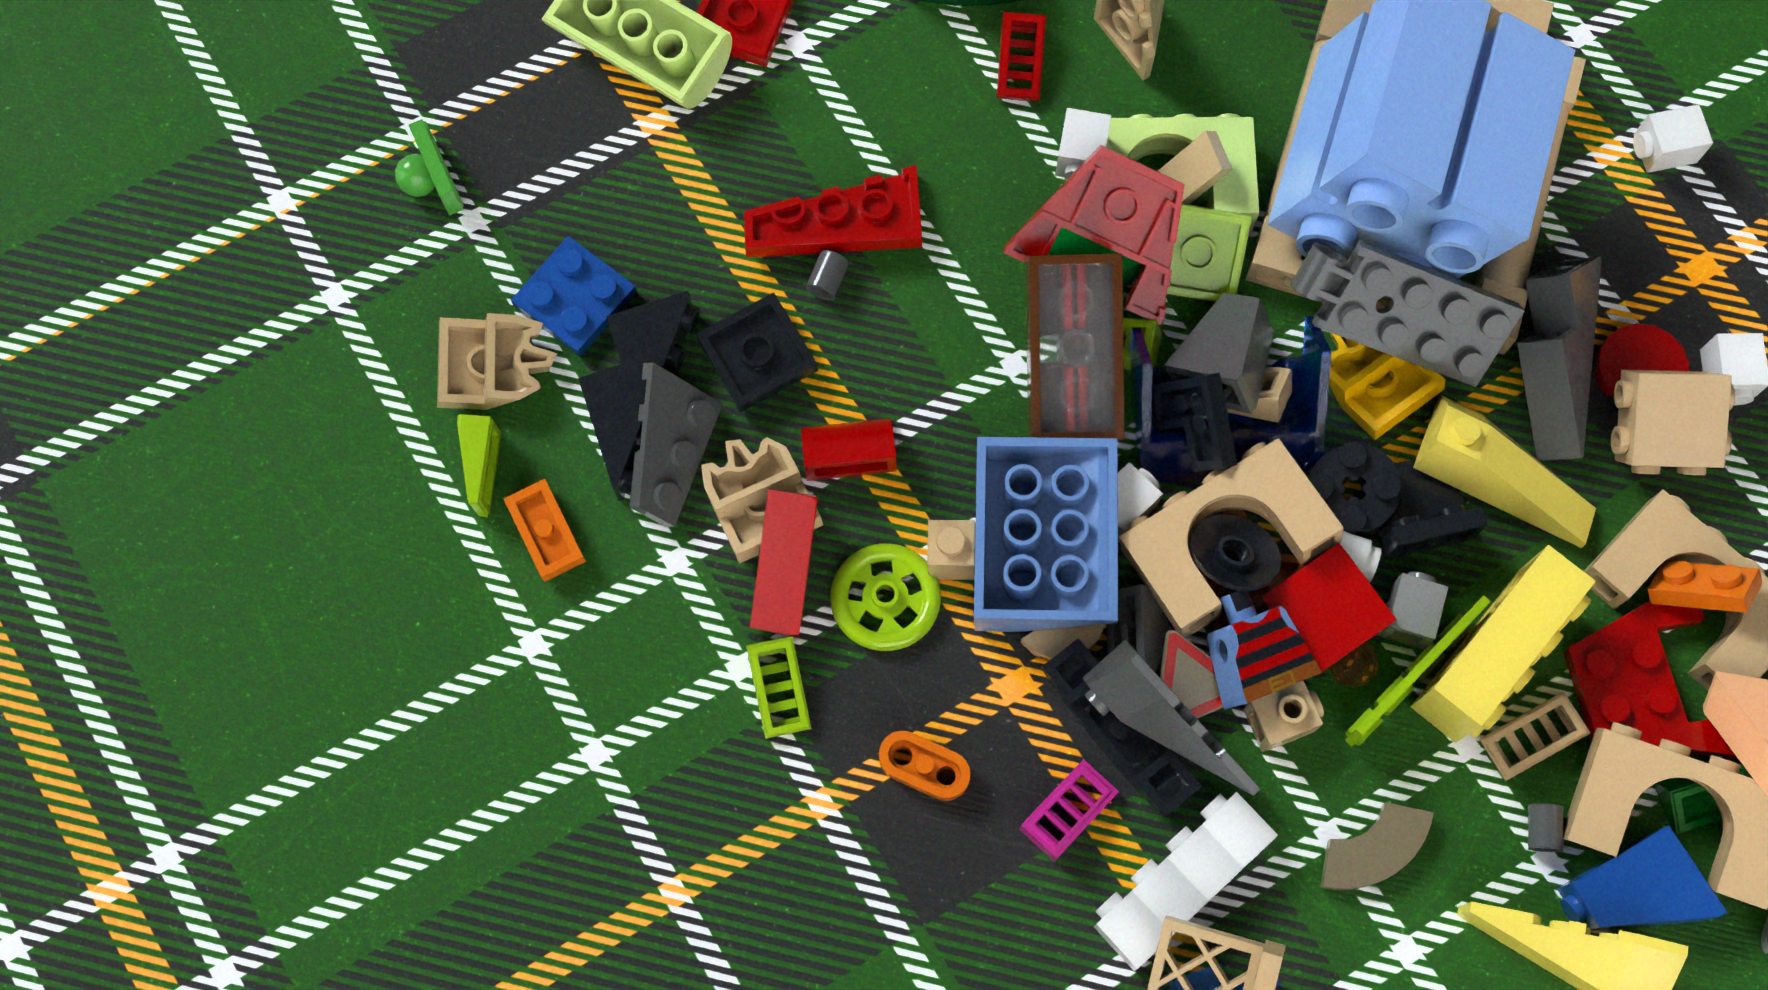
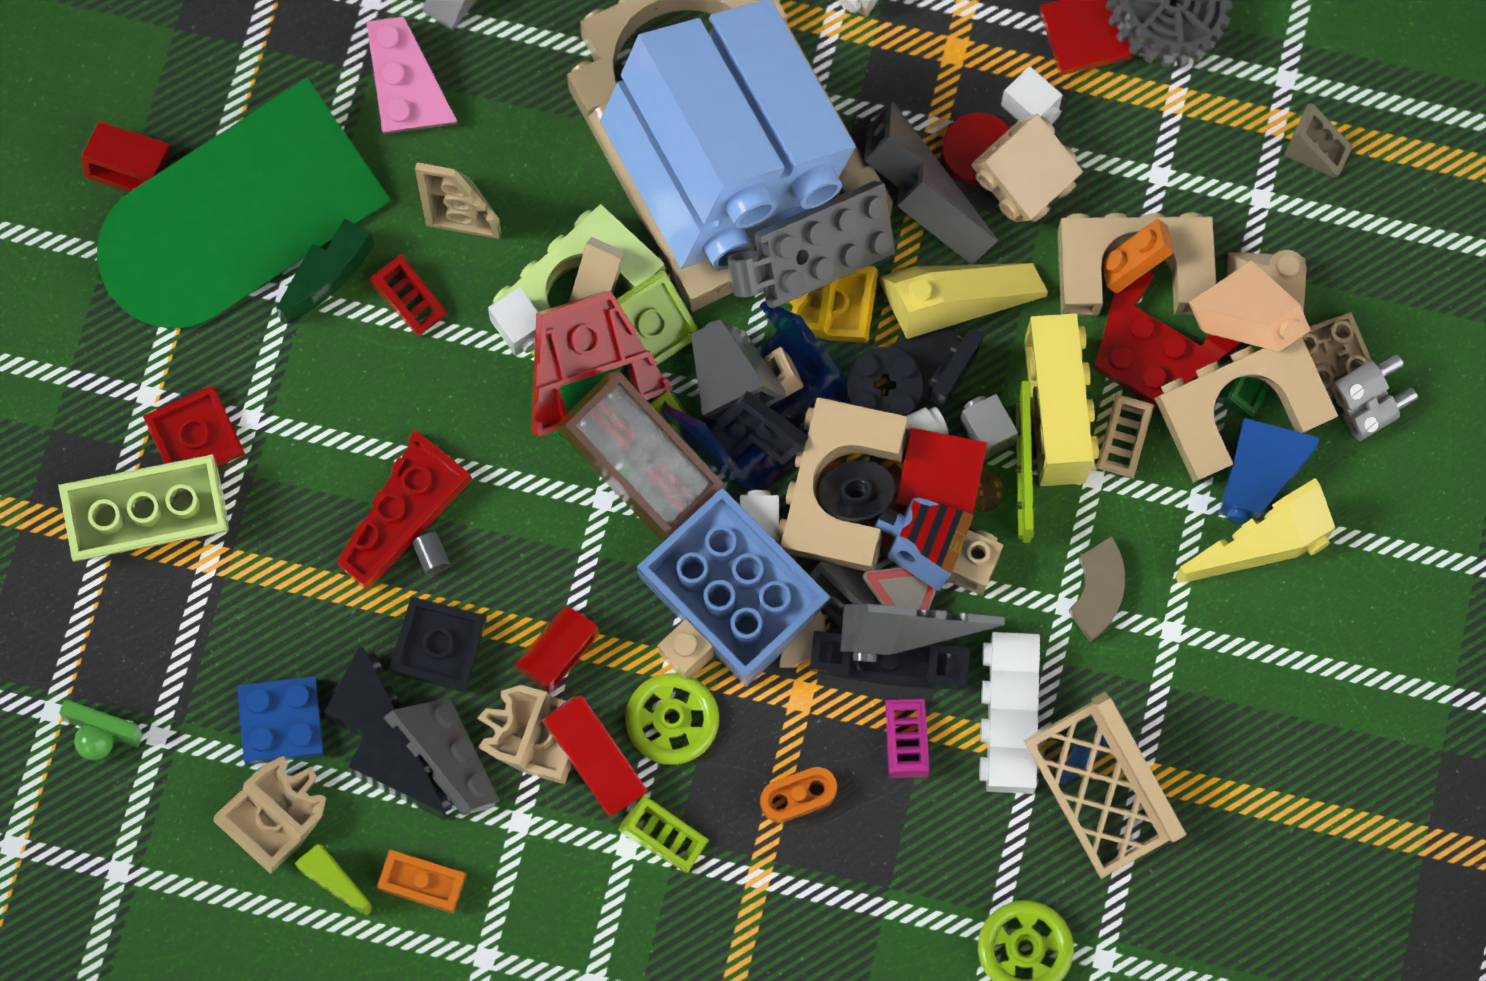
camera: 50 degrees left, 0 degrees up
(1545, 828) = (1180, 484): dark grey hinge -> none

